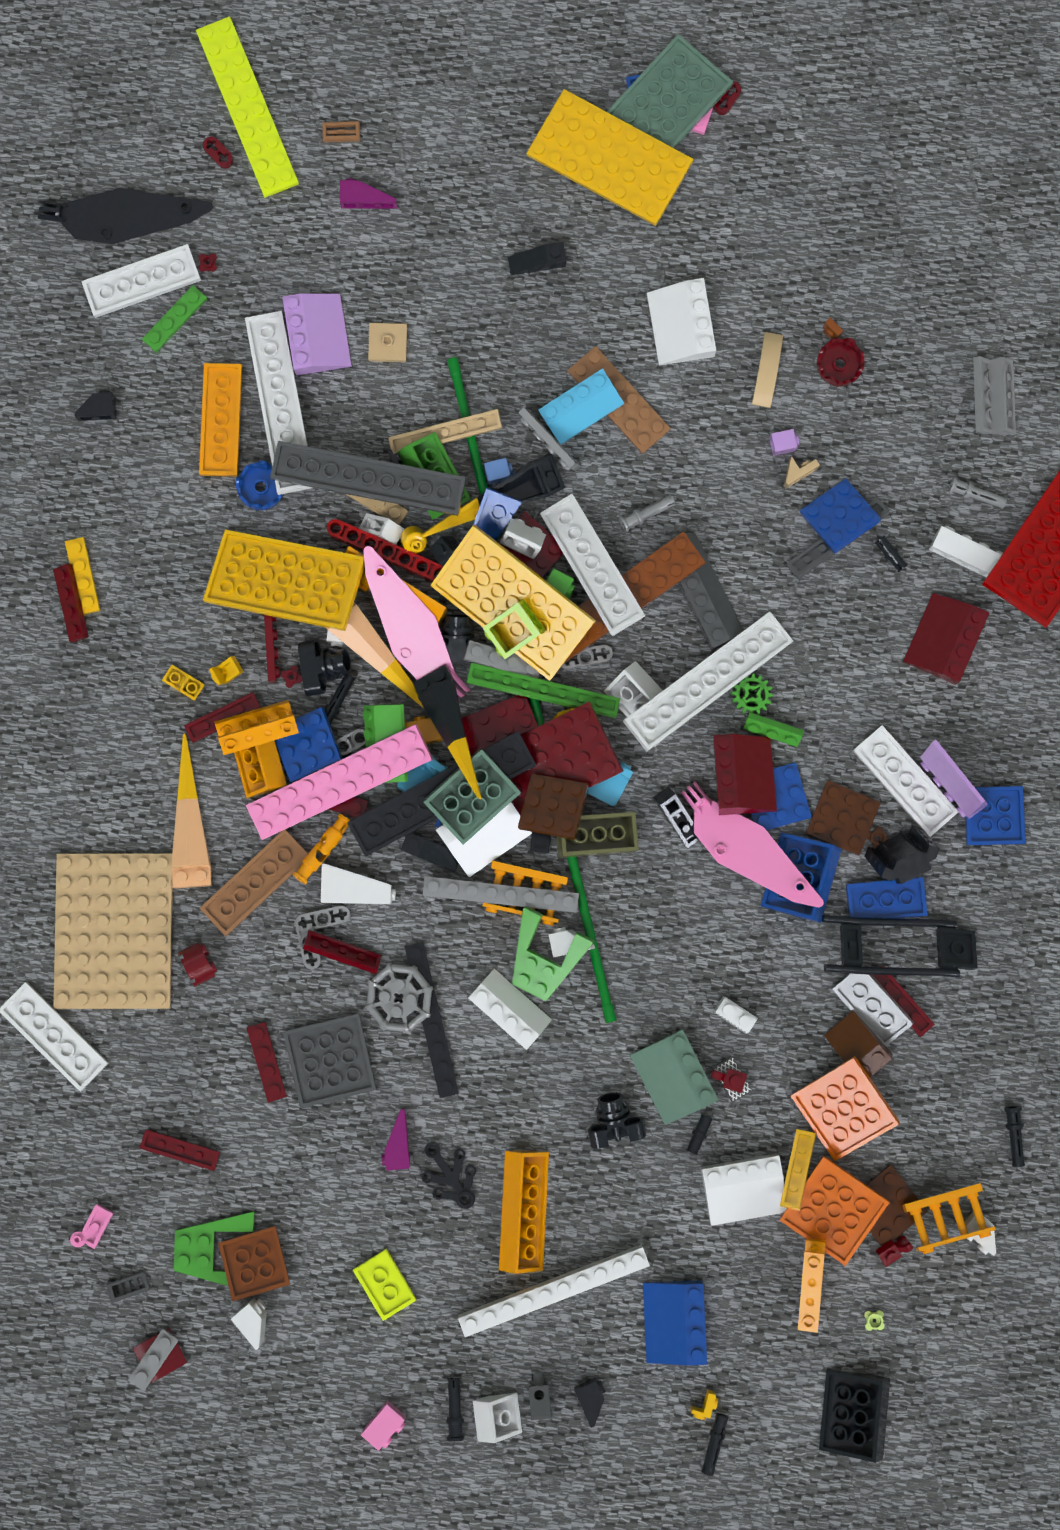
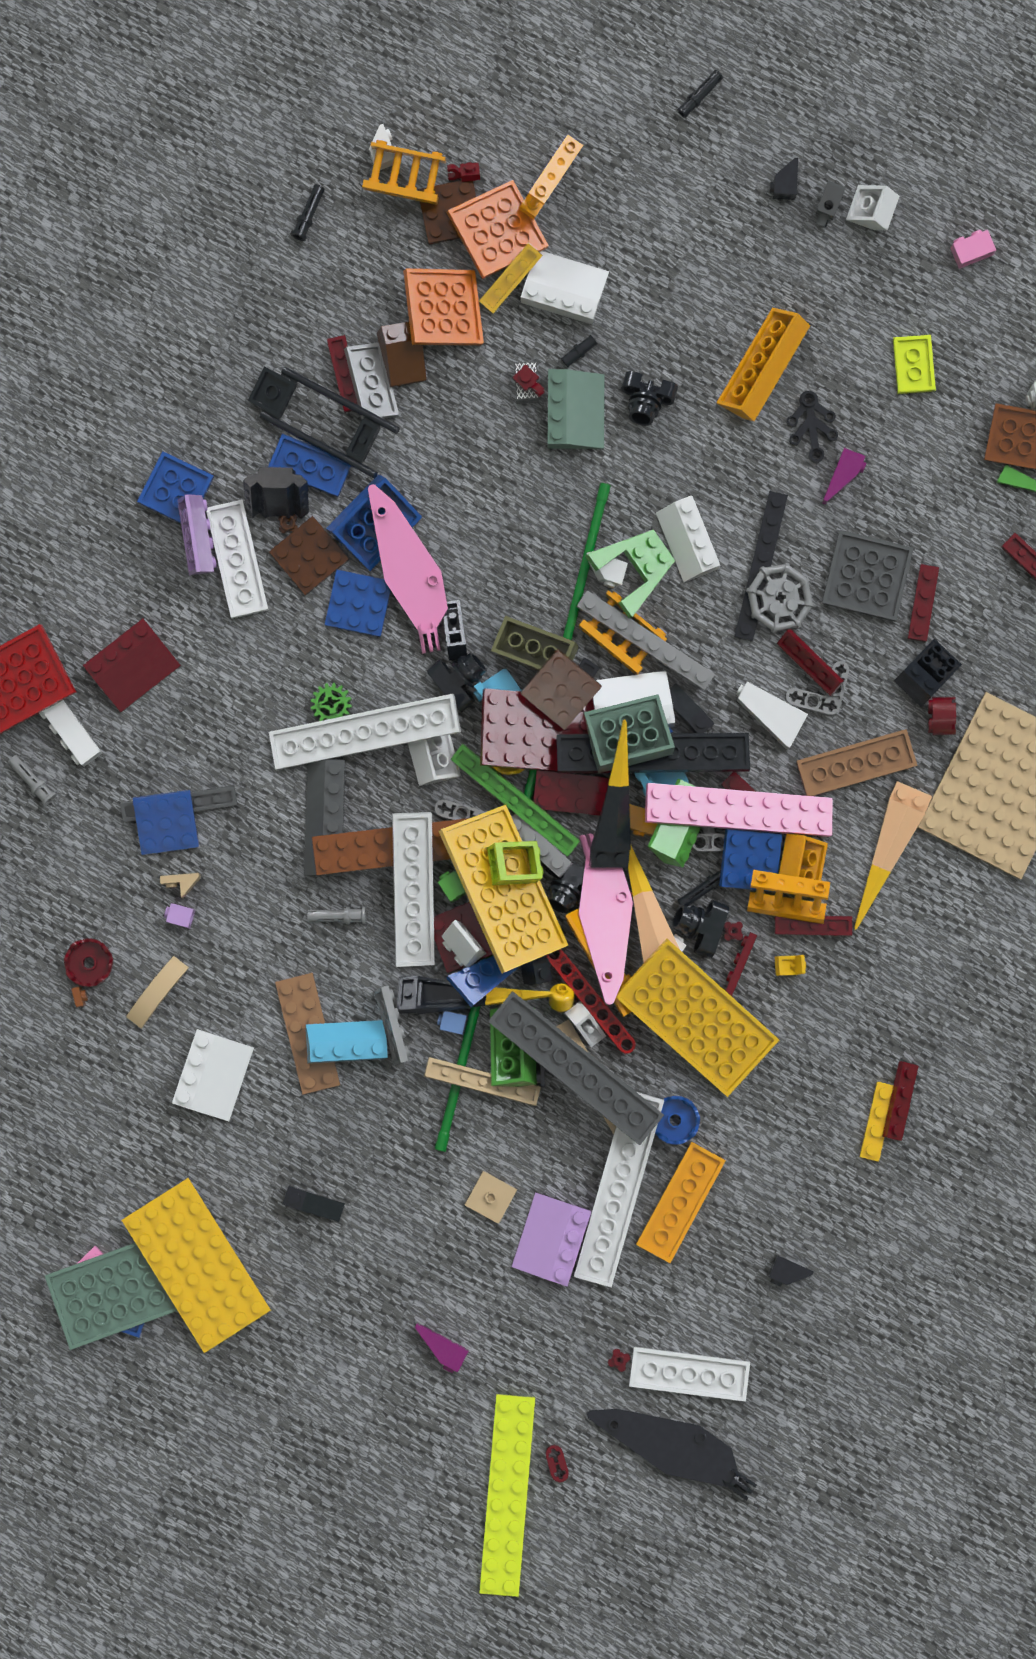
camera: 155 degrees left, 0 degrees up
(174, 319) = (676, 1321): bright green plate -> none
(183, 682) = (833, 976): yellow slope -> none
(231, 998) = (927, 672): none -> black slope
(327, 842) = (779, 762): light orange piece -> none
(341, 132) = (435, 1417): medium nougat tile -> none
(455, 1419) = (909, 223): black pin -> none
(553, 1290) = (772, 285): white brick -> none
(650, 773) = (466, 672): none -> black beam
(675, 1322) = (681, 207): blue slope -> none
(709, 1404) = (688, 127): yellow bracket -> none
(730, 100) = (52, 1264): dark red beam -> none
(735, 1015) = (494, 434): white brick -> none
(744, 774) = (376, 635): dark red slope -> none
(773, 729) = (329, 662): bright green plate -> none
(854, 1415) = (569, 57): black slope -> none
(869, 1320) = (509, 119): yellowish green plate -> none
(891, 553) = (138, 765): black pin -> none

